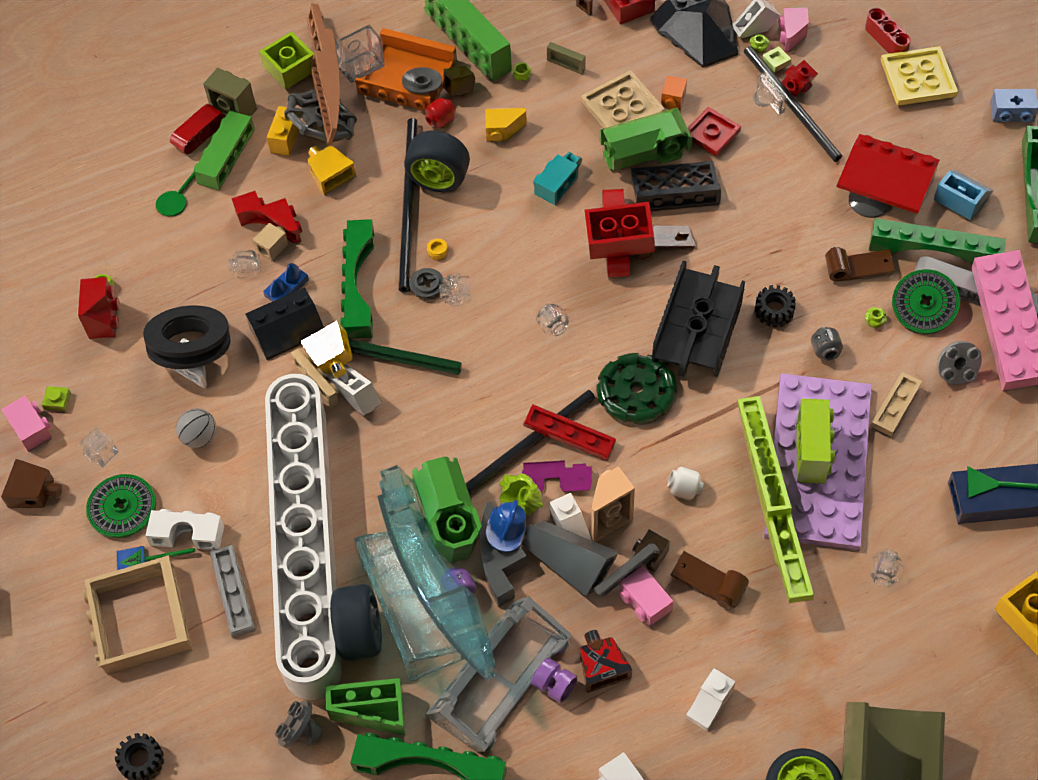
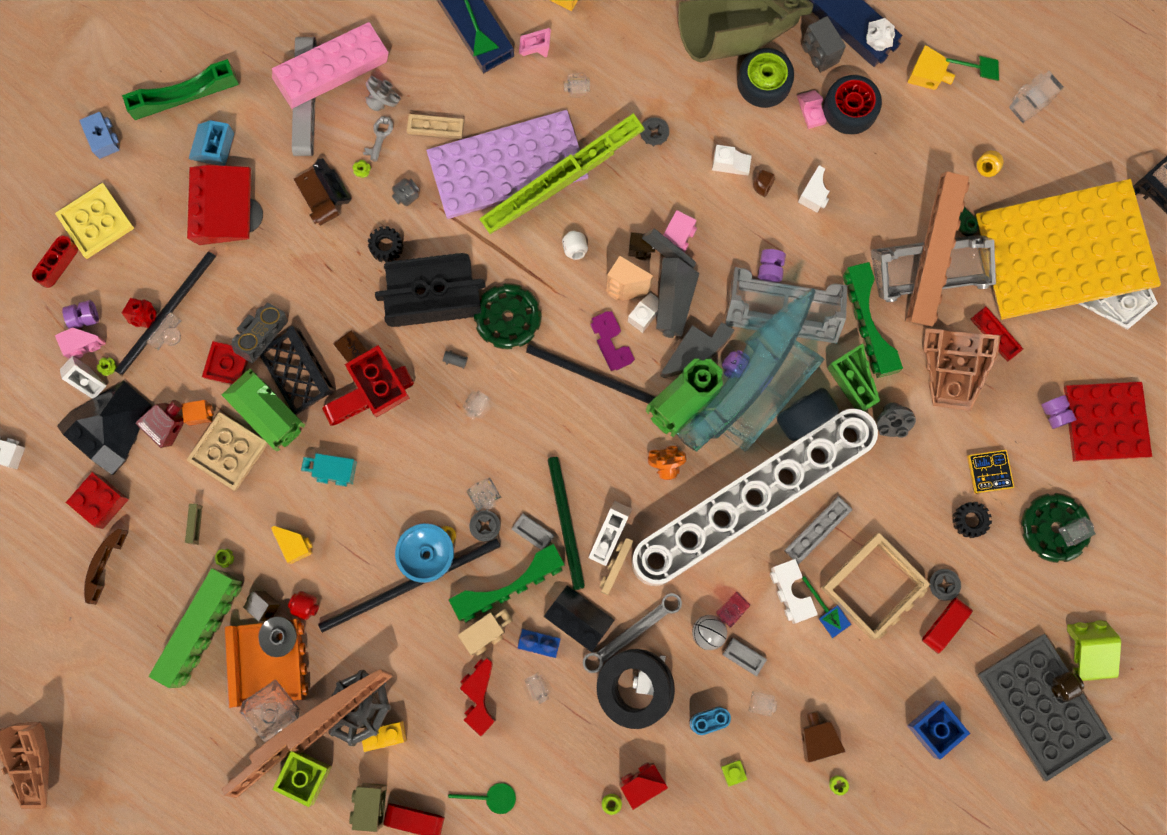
camera: 120 degrees left, 20 degrees up
(26, 422) = (769, 779): bright pink brick -> none
(50, 669) = (947, 625): none -> red beam
(90, 681) = (949, 577): none -> dark grey gear
(105, 513) = (811, 651): piece -> none
(115, 394) = (710, 721): none -> dark azure brick
(154, 457) = (744, 657): none -> light grey tile
(204, 462) = (733, 609): none -> clear pink slope
(223, 150) = (427, 780): bright green brick -> none
(243, 368) = (631, 633): none -> light grey piece
(270, 241) = (504, 679): tan brick -> none
(324, 241) = (484, 632): none -> tan brick
(329, 168) = (406, 673): yellow torso -> none
(329, 349) = (592, 563): torso -> none
(392, 455) = (667, 461): none -> orange plate
(395, 323) = (532, 532): none -> light grey tile
(428, 217) = (413, 546): none -> dark azure dish
(437, 161) = (367, 571): black wheel -> none
(506, 526) = (678, 349): blue piece -> none
(523, 490) = (642, 356): lime hair -> none
(569, 432) = (571, 346): red tile -> none
(602, 662) = (741, 241): torso -> none
(618, 316) = (455, 359): none -> dark grey pin
(664, 725) = (763, 182): none -> reddish brown piece
(675, 61) = (162, 423): none -> dark red torso
(720, 586) = (642, 197): reddish brown door -> none
(729, 162) = (258, 332): none -> dark grey piece
(776, 59) = (121, 343): yellowish green plate -> none
(790, 621) = (653, 124): none -> dark grey gear
(814, 440) = (506, 160): lime brick -> none
(820, 35) = (77, 316): none -> medium lavender wheel
(868, 282) = (331, 183): none -> black hinge
(906, 236) = (275, 158): green arch -> none
(908, 349) = (374, 153): none -> light grey piece
(924, 318) = (329, 122): piece -> none
(960, 547) = (535, 42): none -> bright pink slope

